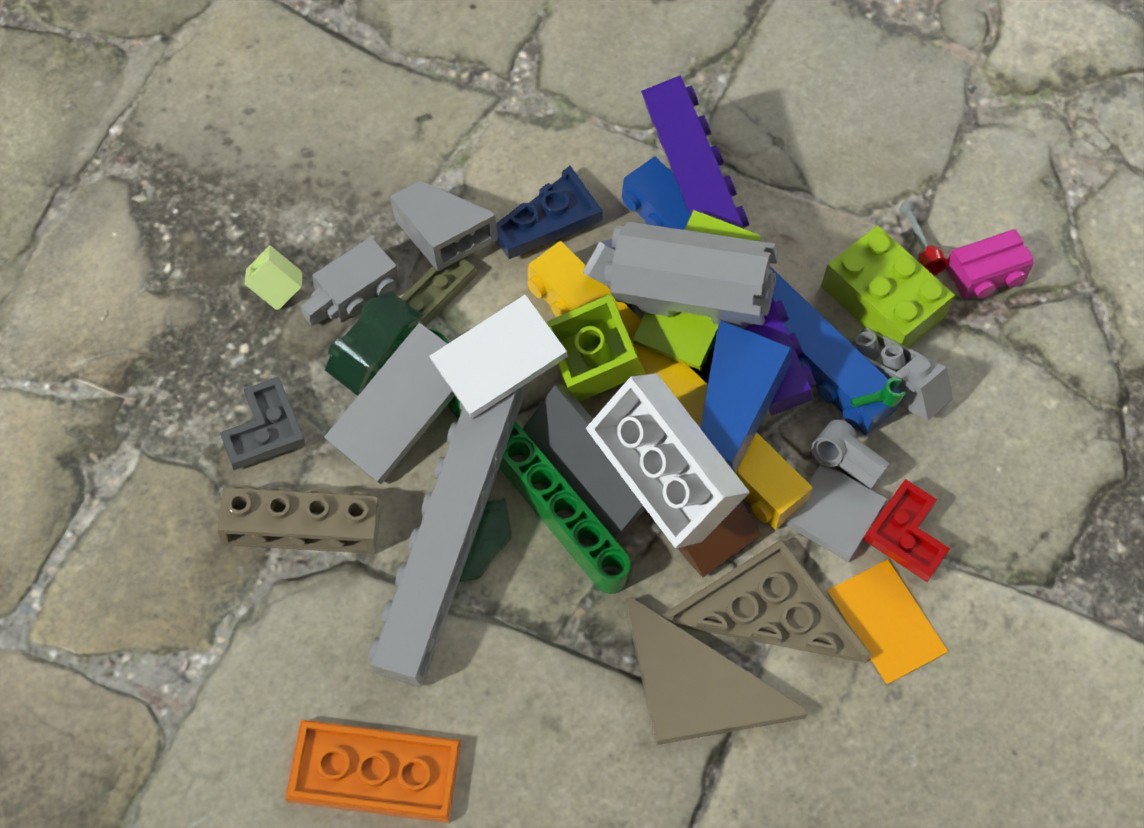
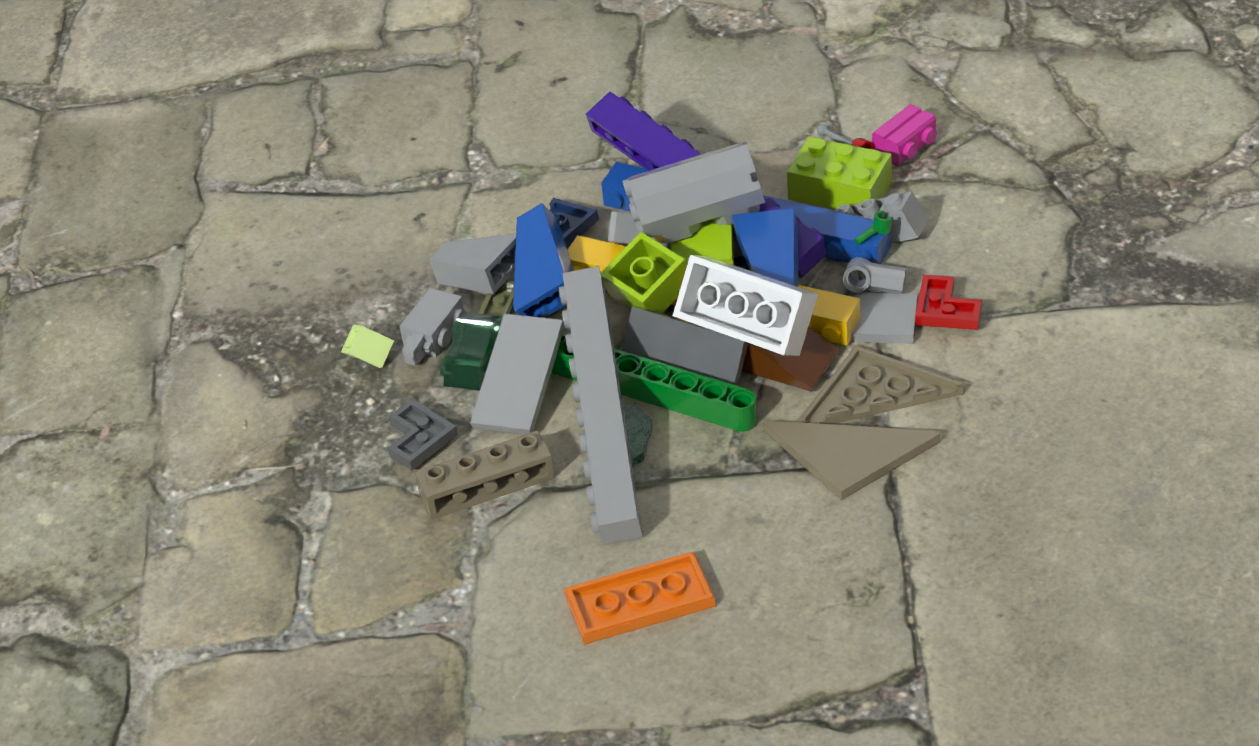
camera: 15 degrees left, 20 degrees down
(498, 356) = (581, 298): white tile -> none
(500, 261) = (539, 263): none -> blue slope
(887, 621) = (966, 363): light orange sticker -> none

